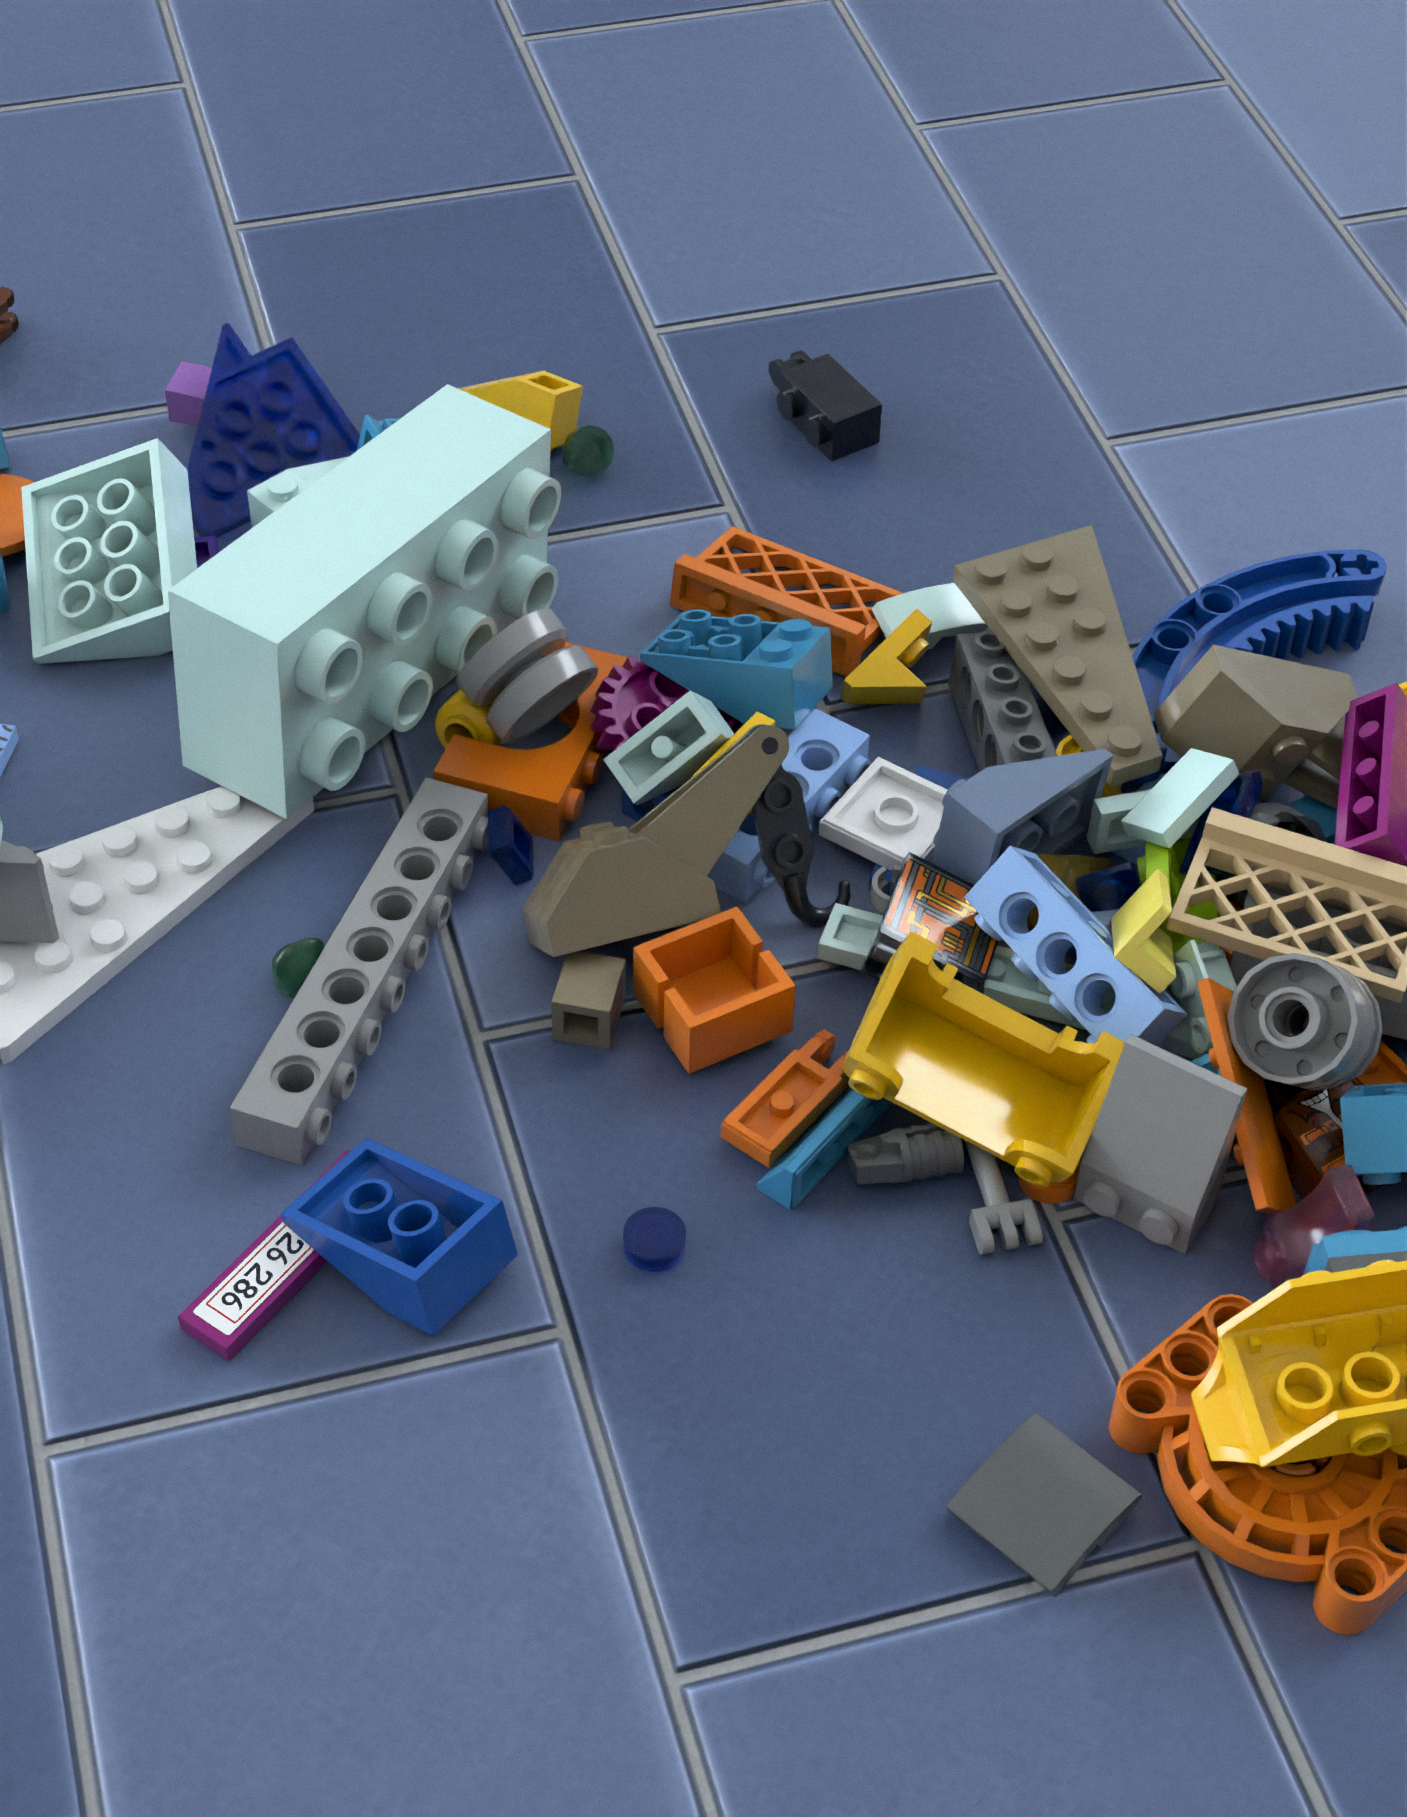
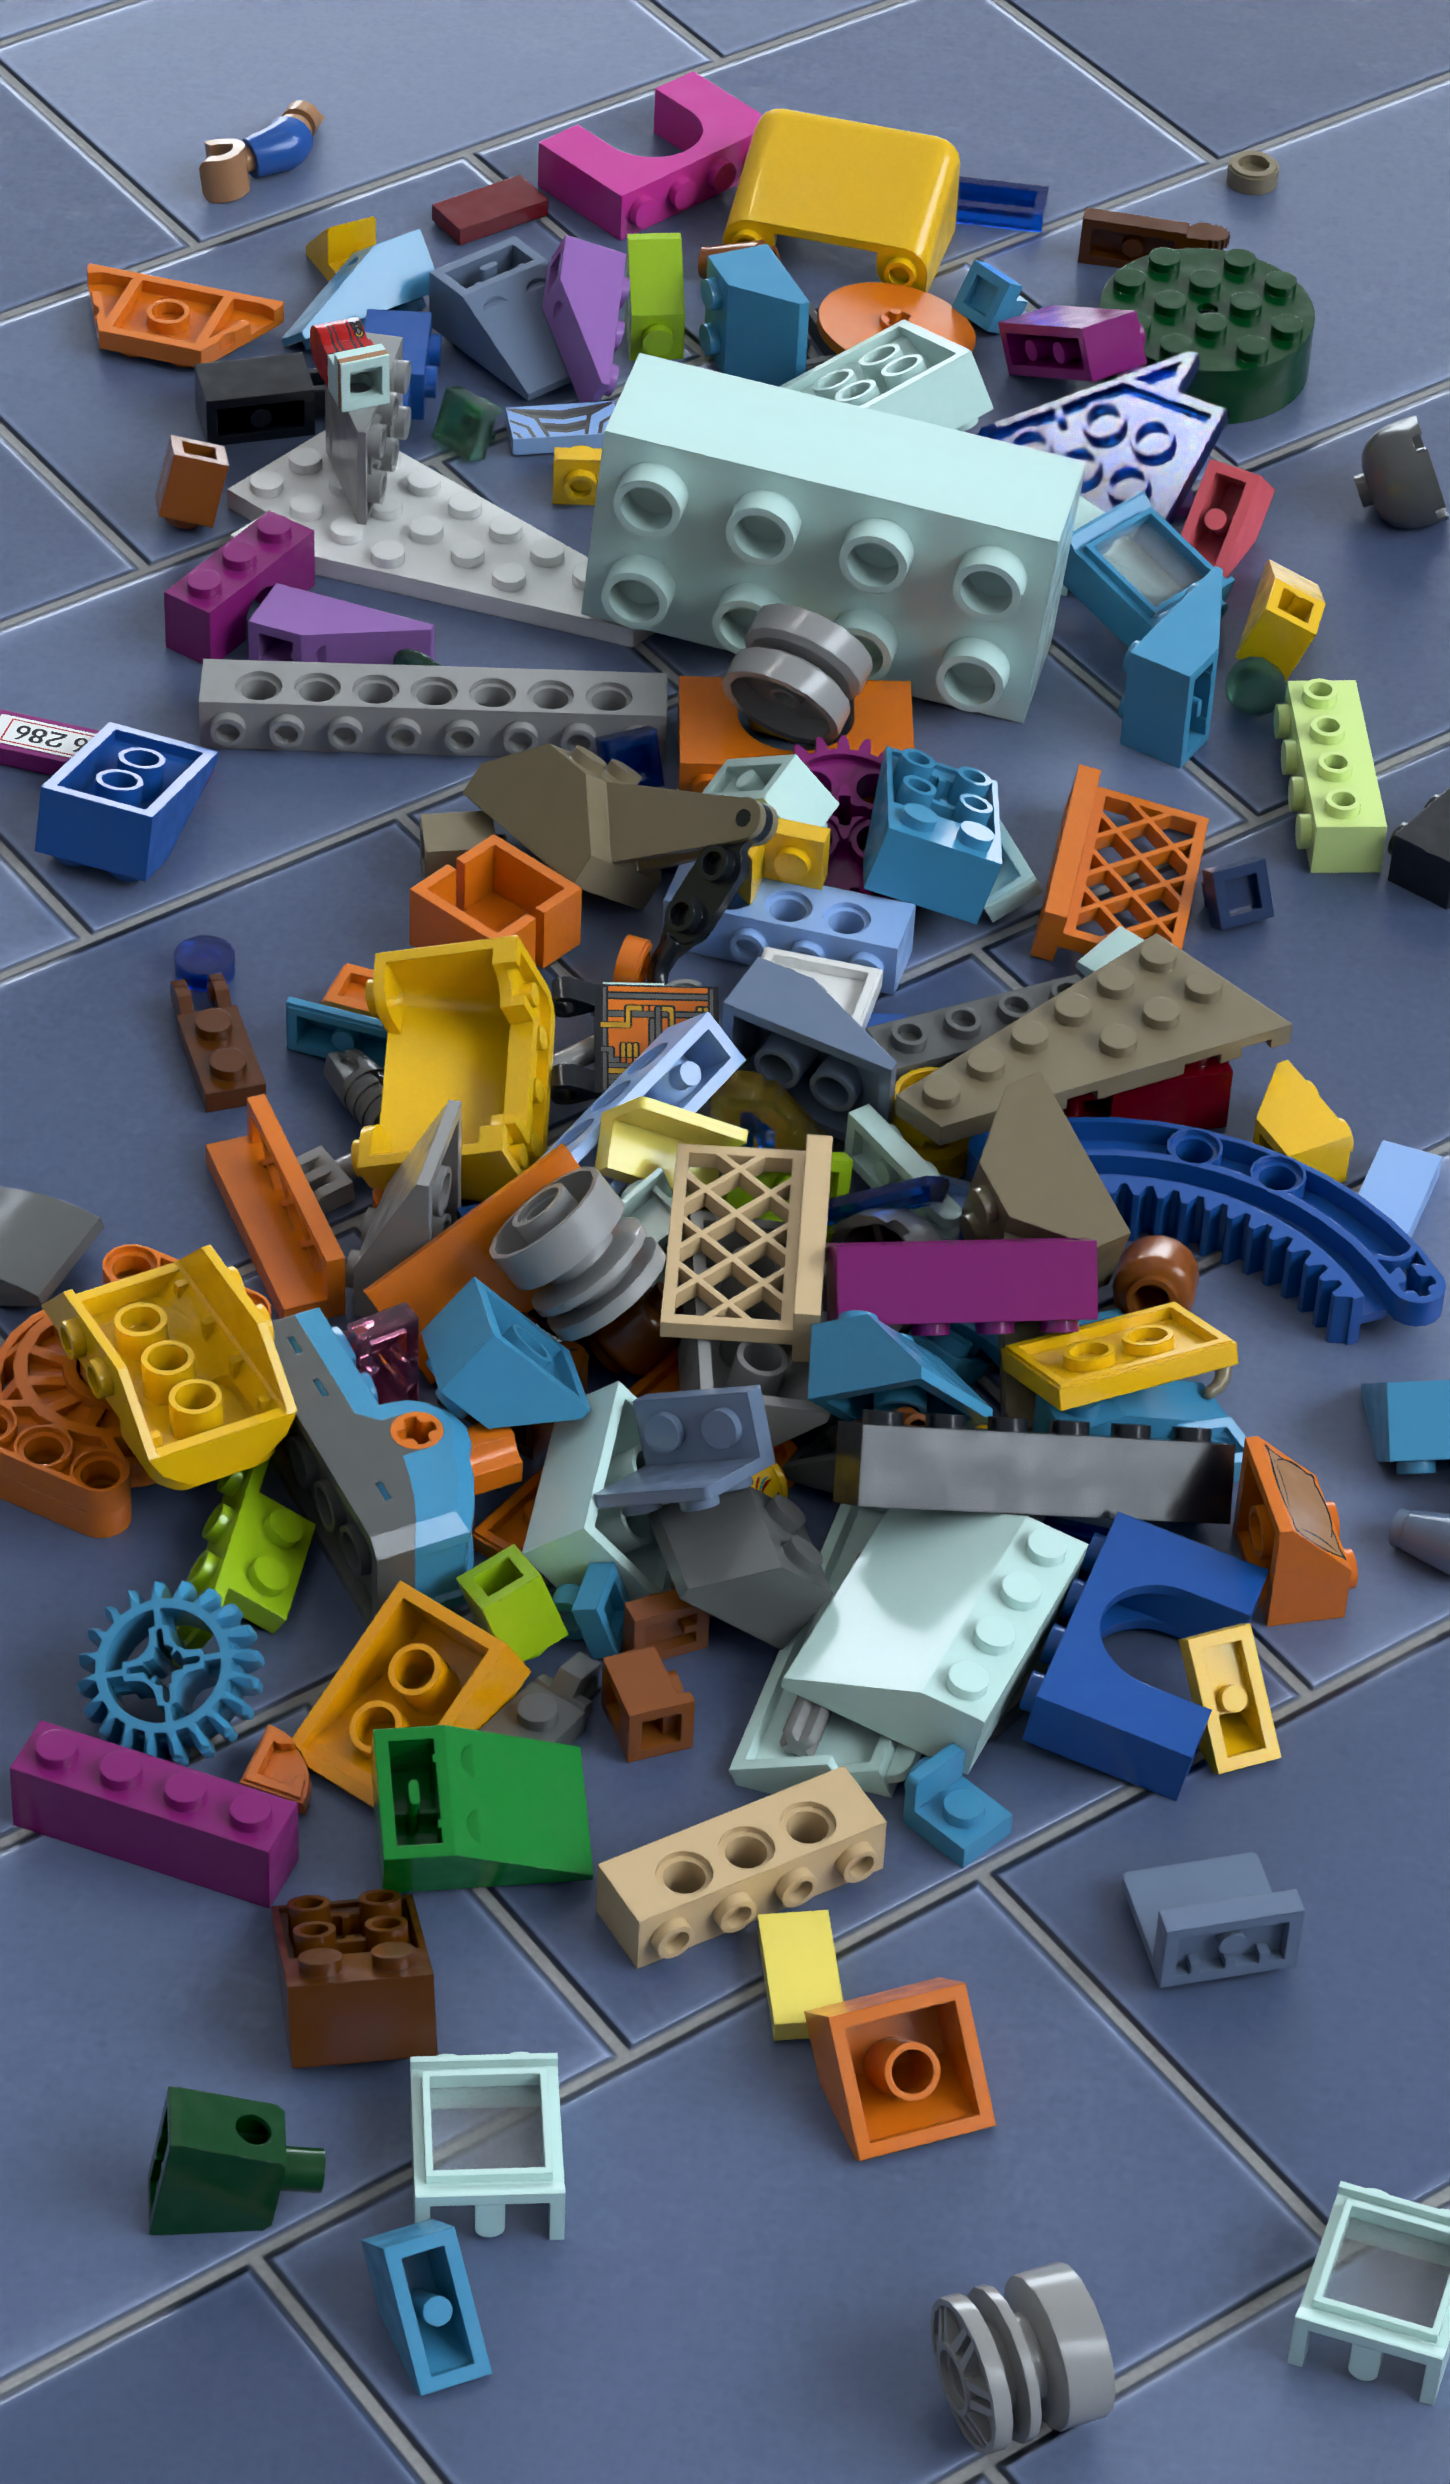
camera: 70 degrees right, 5 degrees down
(55, 772) = (575, 475): none -> yellow bracket
(92, 1037) = (211, 602): none -> magenta arch
(112, 405) = (1073, 342): none -> magenta brick
(115, 340) = (1230, 309): none -> dark green piece
(210, 1017) = (319, 628): none -> medium lavender slope
(367, 389) = (1227, 514): none -> coral slope
(380, 290) = (1400, 477): none -> dark grey cylinder
(598, 473) = (1174, 677): none -> dark azure slope
(720, 442) = (1331, 776): none -> yellowish green brick
(778, 1260) = (217, 1046): none -> reddish brown hinge
(796, 920) = (633, 960): none -> orange tile
(839, 535) = (1237, 893): none -> dark blue tile
(882, 674) = (1035, 950): yellow slope -> none
(1061, 1272) = (279, 1216): none -> orange fence
(1149, 583) = (1302, 1125): none -> yellow slope
(1180, 797) = (889, 1149): light aqua tile -> none
(1201, 555) = (1401, 1183): none -> light blue tile

